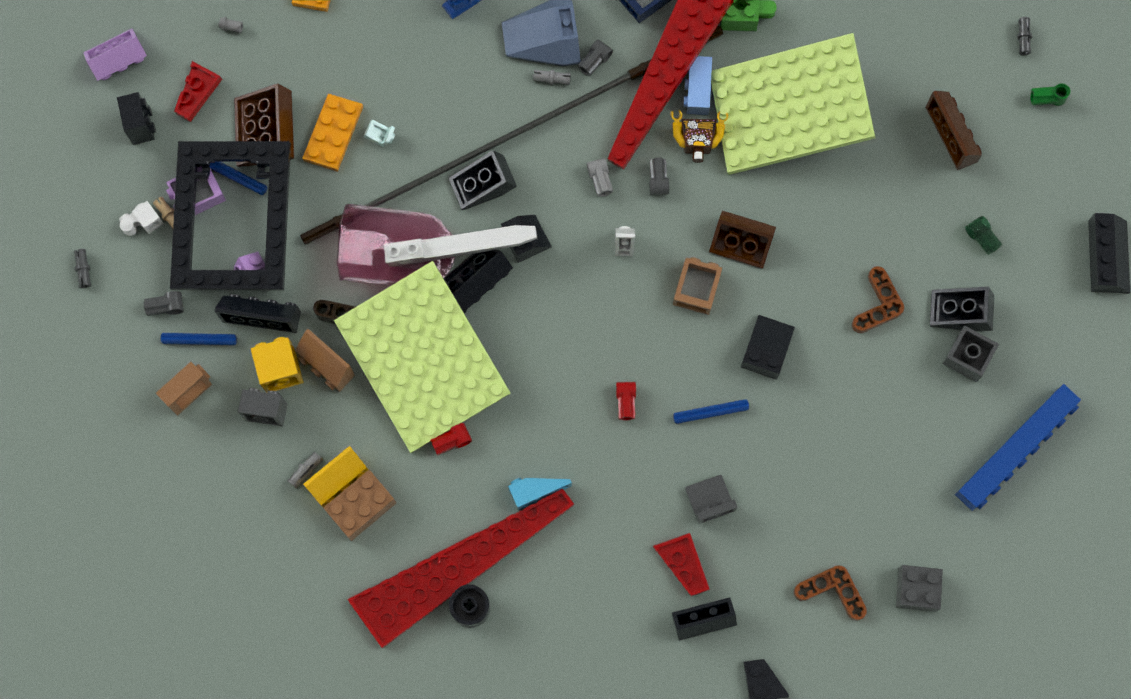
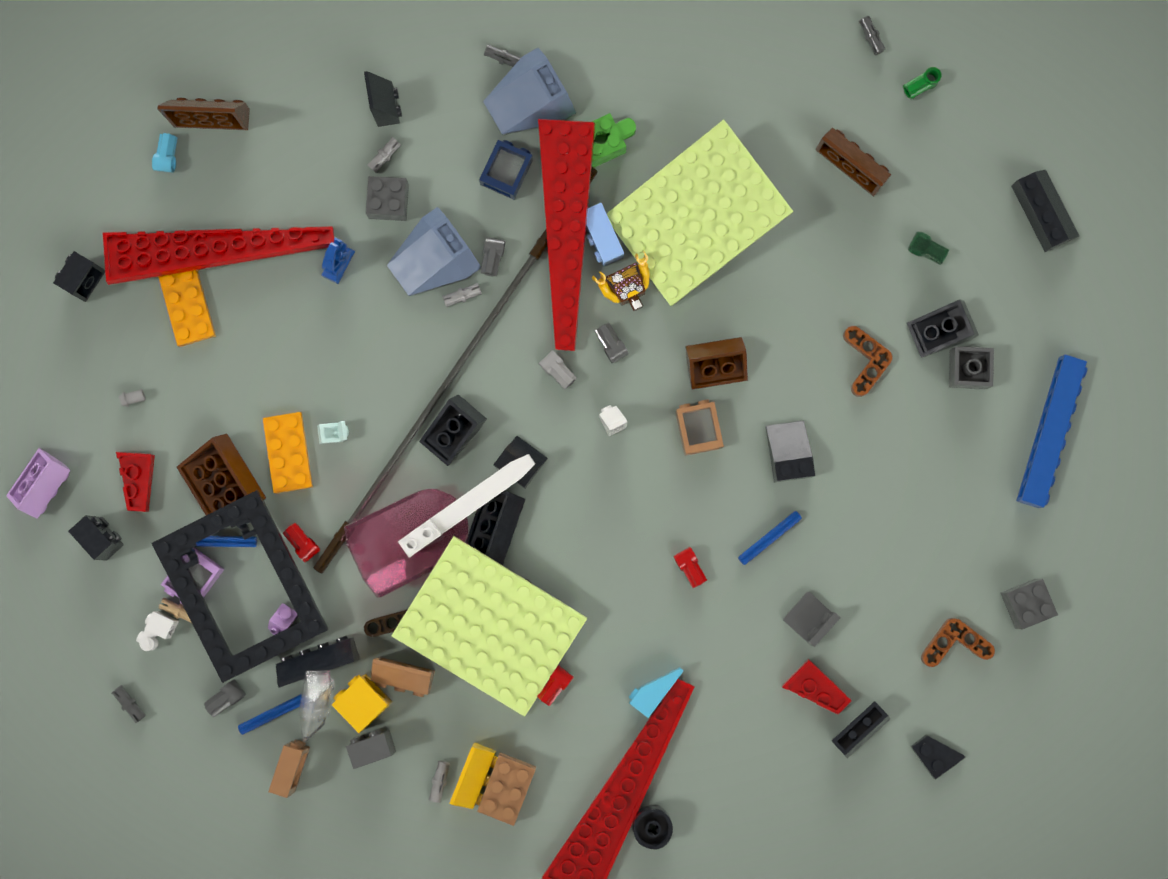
camera: 30 degrees left, 10 degrees up
(239, 340) = (315, 701): none -> clear slope
(302, 213) = (304, 546): none -> red piece

